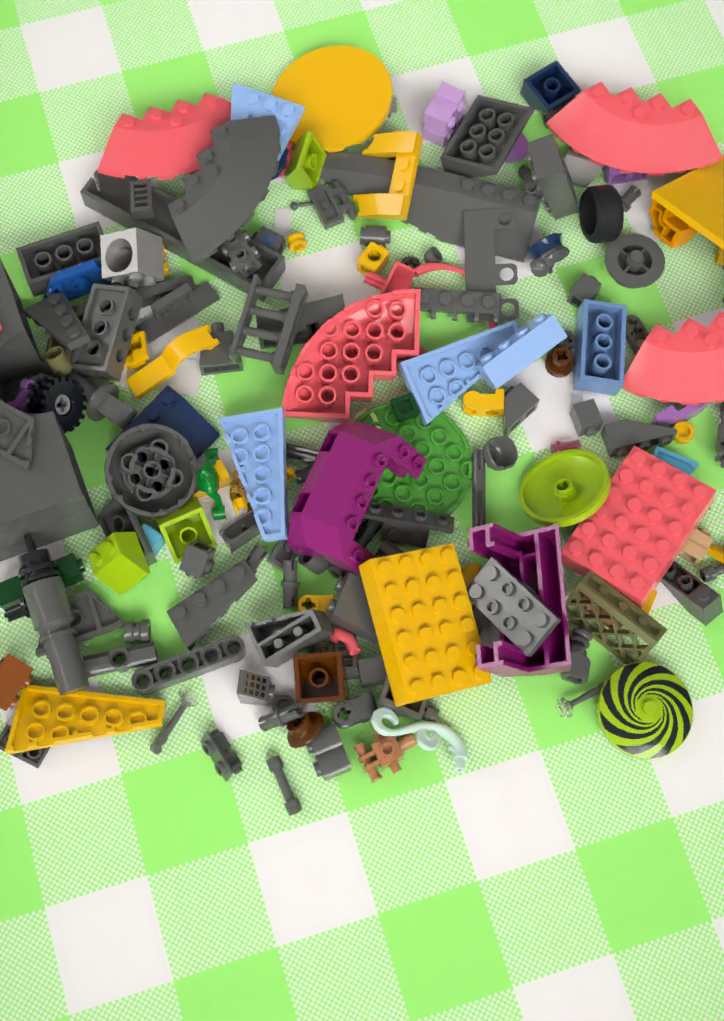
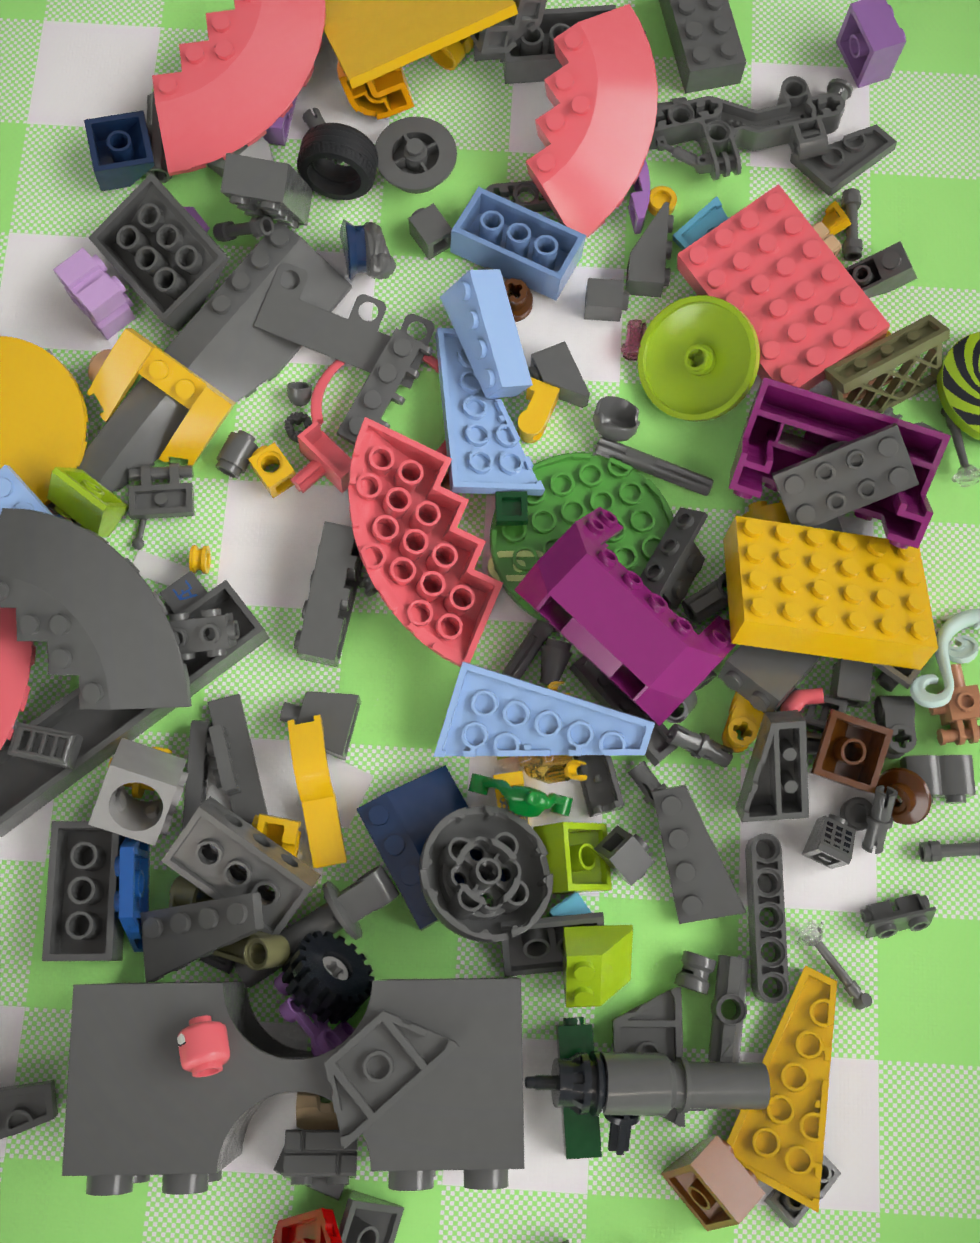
camera: 70 degrees left, 5 degrees up
(284, 338) = (330, 605): dark grey fence -> none

